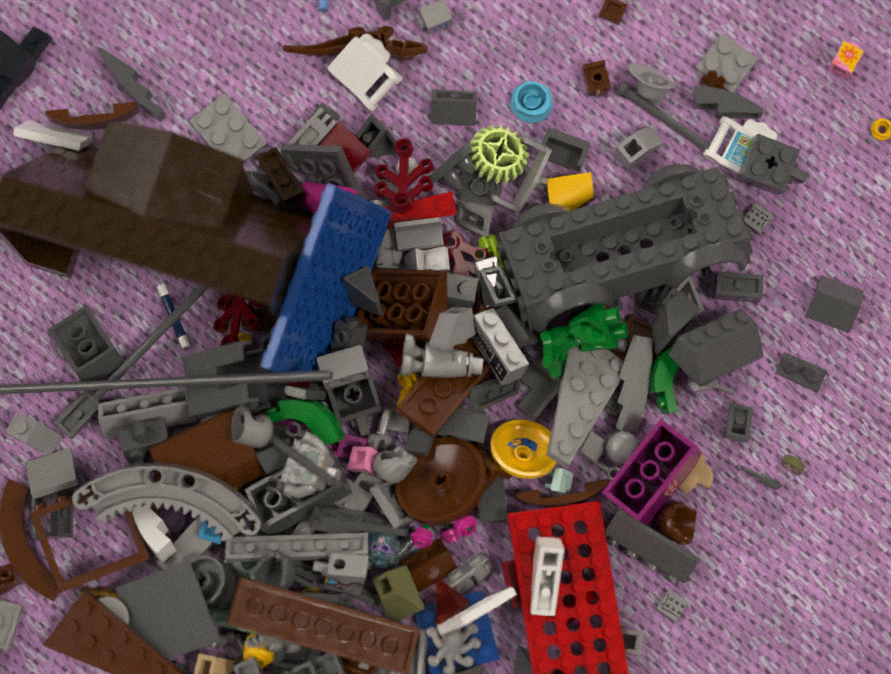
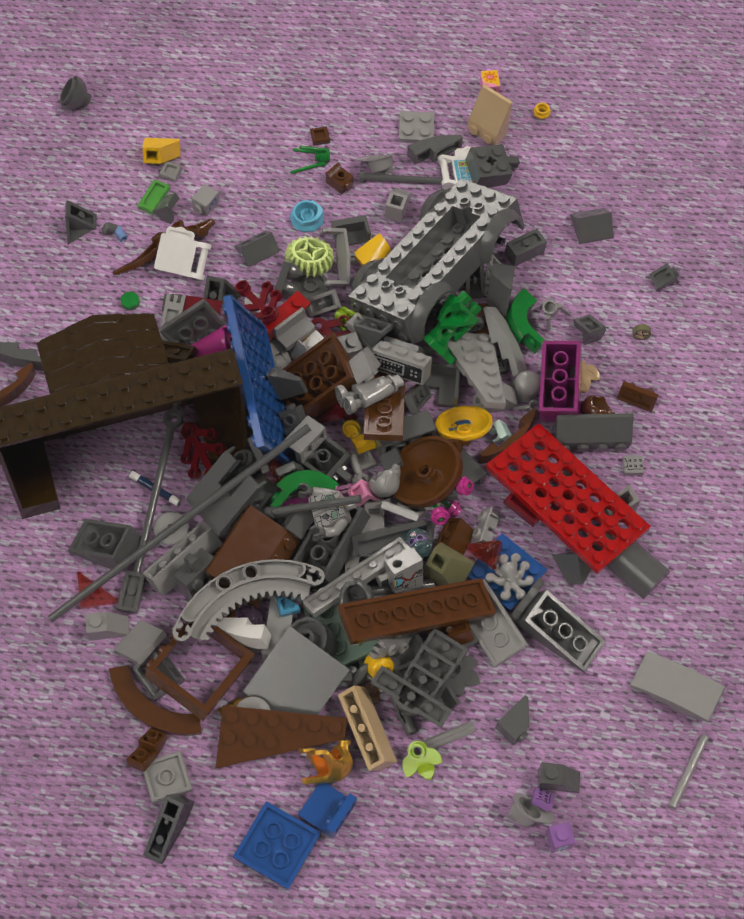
camera: 40 degrees left, 15 degrees down
(45, 399) = (97, 598): none -> clear red tile
(153, 362) = (166, 520): none -> light grey piece
(235, 647) = (361, 674): none -> dark grey bar
(251, 432) = (279, 508): light grey helmet -> none
(283, 88) = (130, 300): none -> green tile
(476, 610) = (512, 538): white tile -> none
(546, 575) = (543, 482): white slope -> none
(596, 36) = (321, 155): none -> green plant
(714, 81) = (414, 137): reddish brown plant -> none
(718, 347) = (543, 283): dark grey slope -> none
(738, 541) = (638, 396): none -> reddish brown tile
(764, 479) = (629, 353): dark grey piece -> none
(800, 372) = (603, 276): dark grey tile -> none
(808, 107) = (490, 116): none -> tan slope
(868, 416) = (664, 276): none -> dark grey bracket

